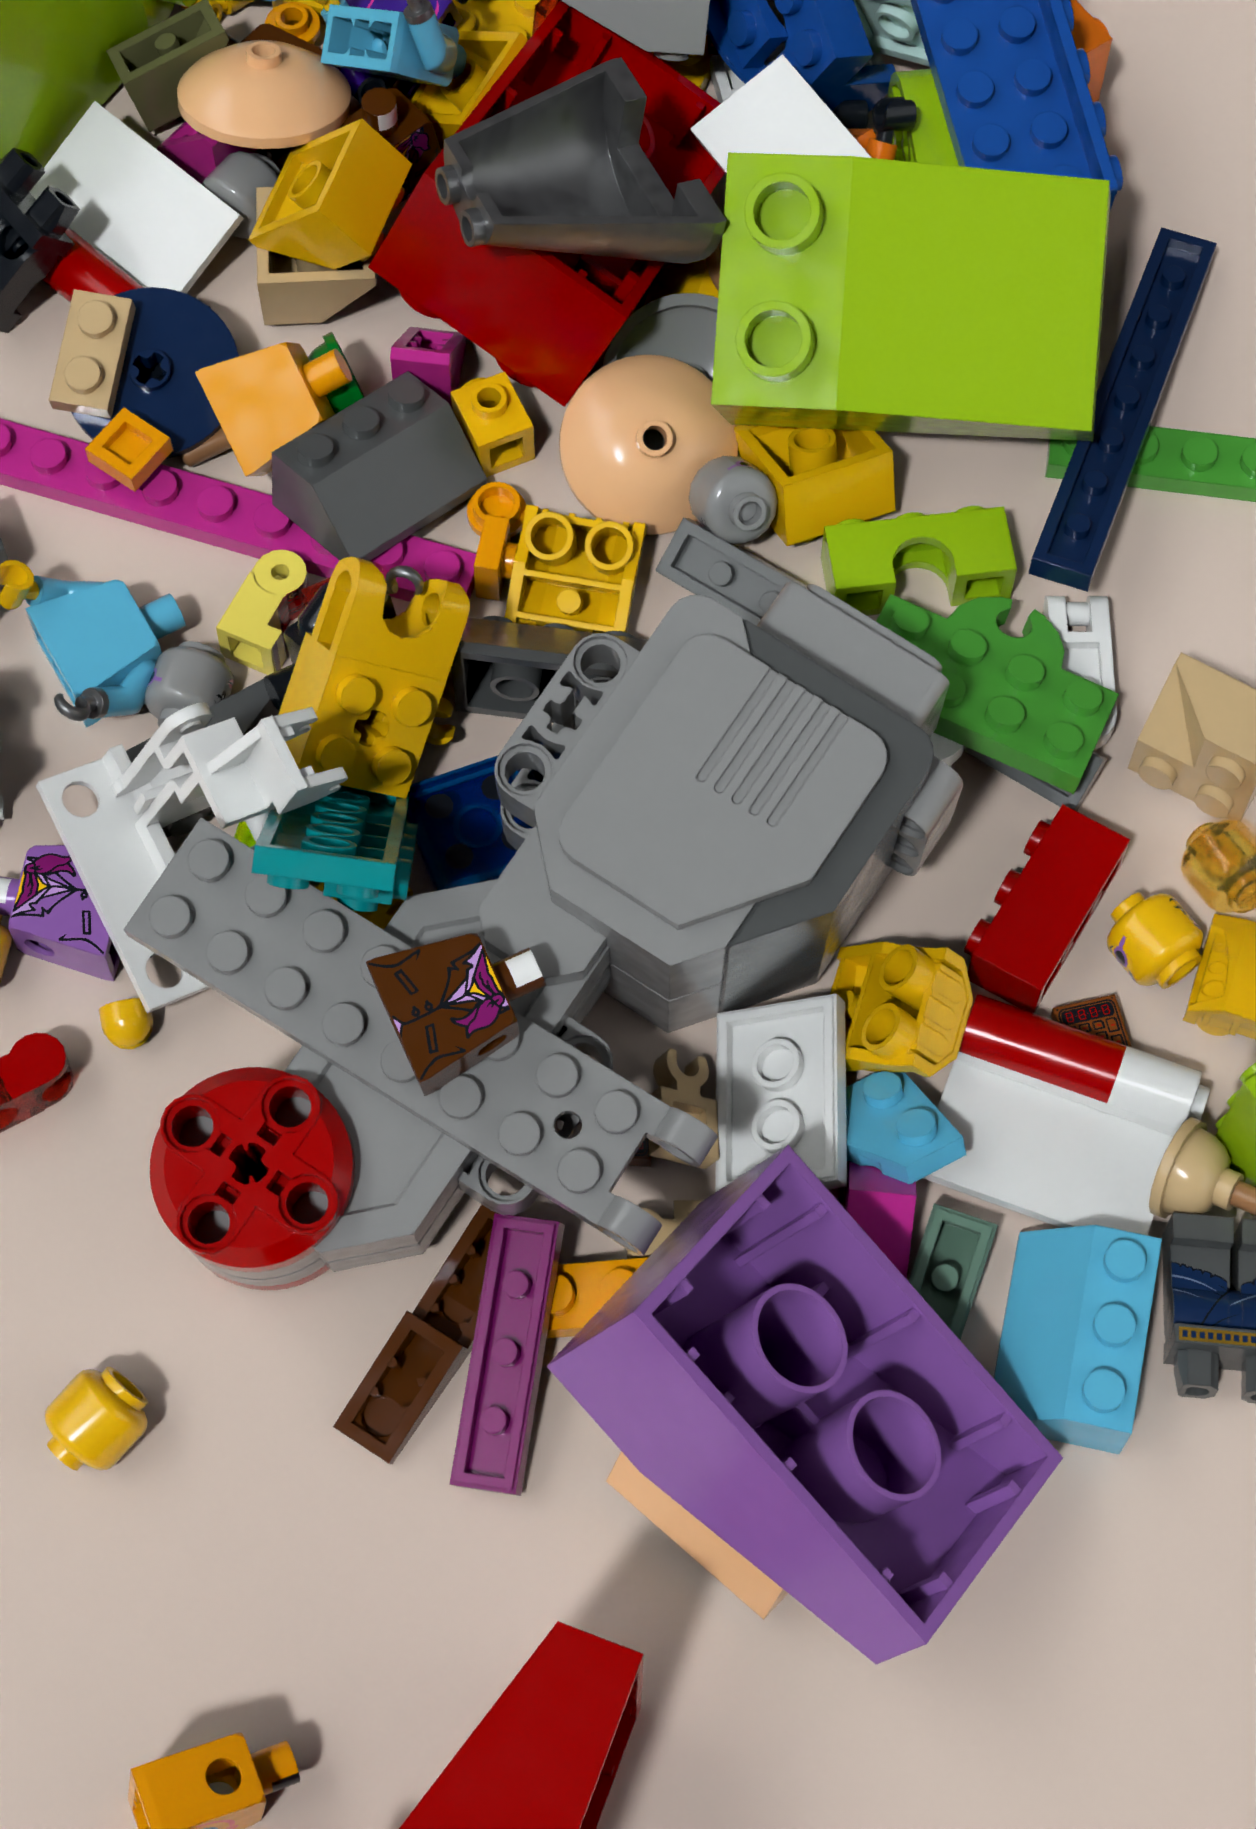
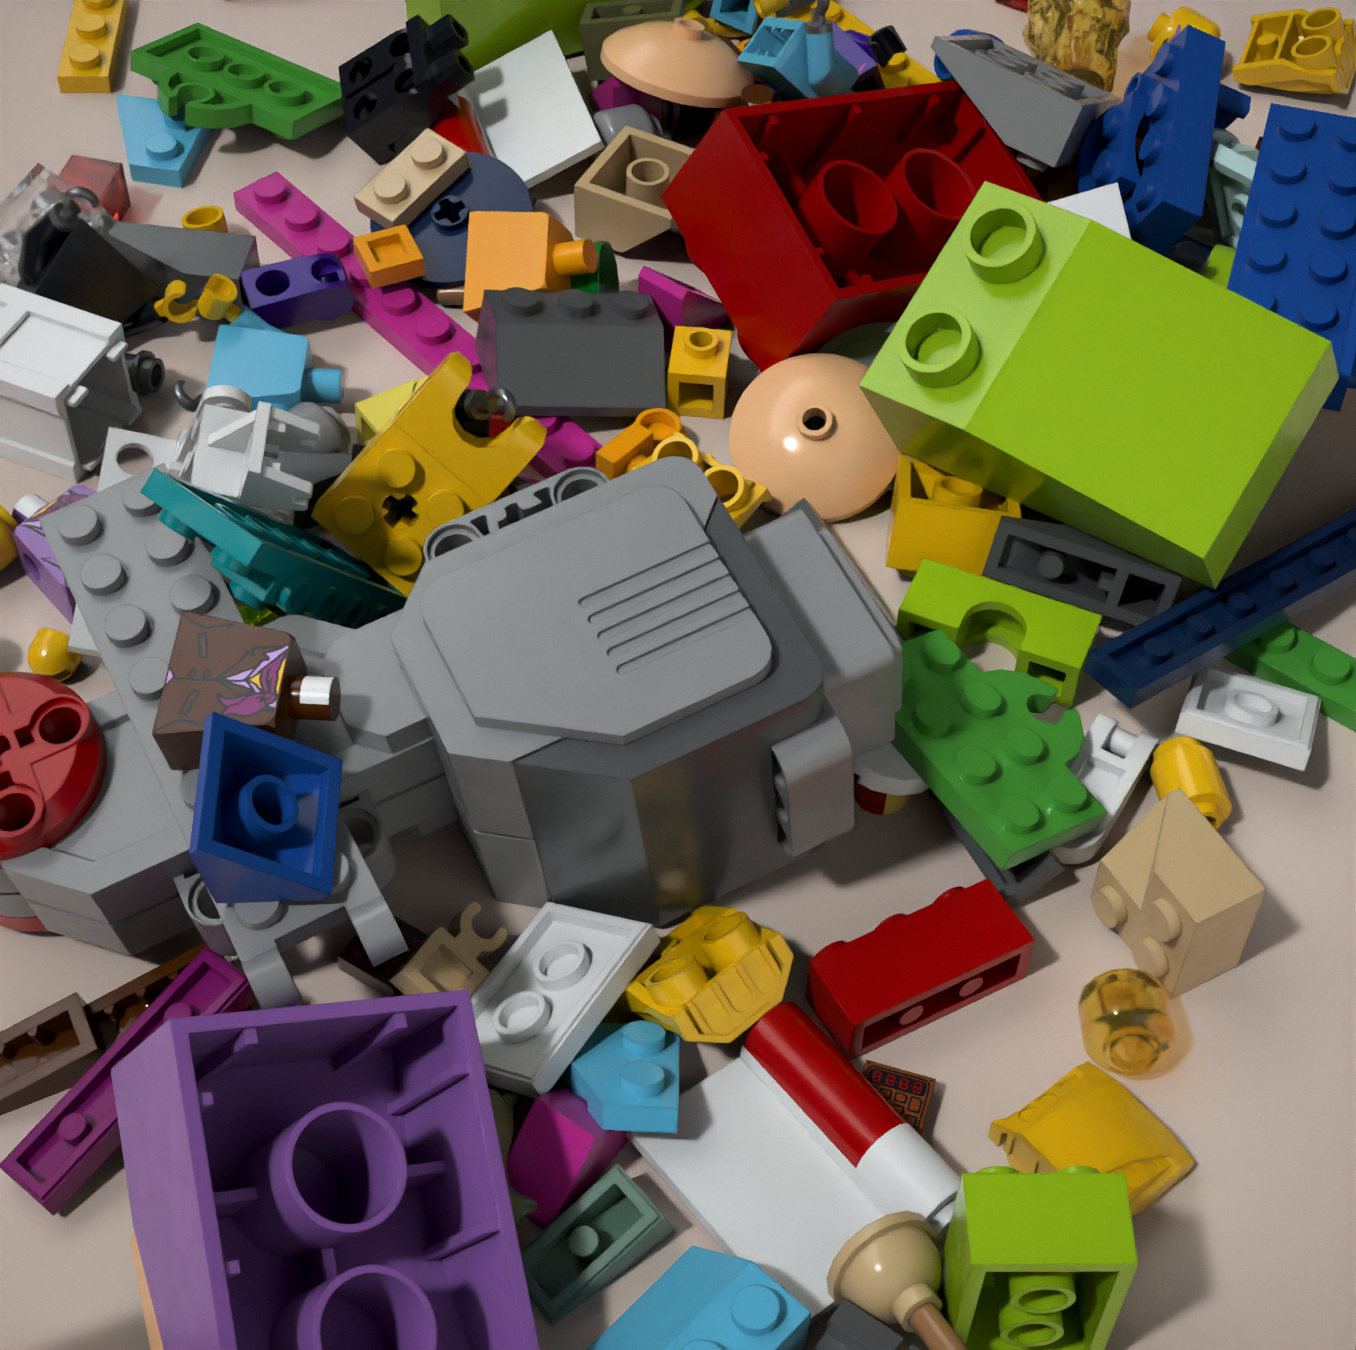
camera: 30 degrees right, 15 degrees down
(63, 528) = (299, 290): none -> dark purple leg
(333, 198) = (656, 151): yellow slope -> none
(553, 1096) = (263, 815): none -> blue slope
(574, 179) = (848, 163): flat silver cone -> none
(733, 499) = (856, 502): light grey head -> none
(962, 471) = (1079, 570): none -> dark grey slope
(1154, 627) = (1193, 768): none -> yellow brick
(1154, 939) = (1006, 1047): yellow head -> none
(1170, 538) = (1250, 716): none -> white tile

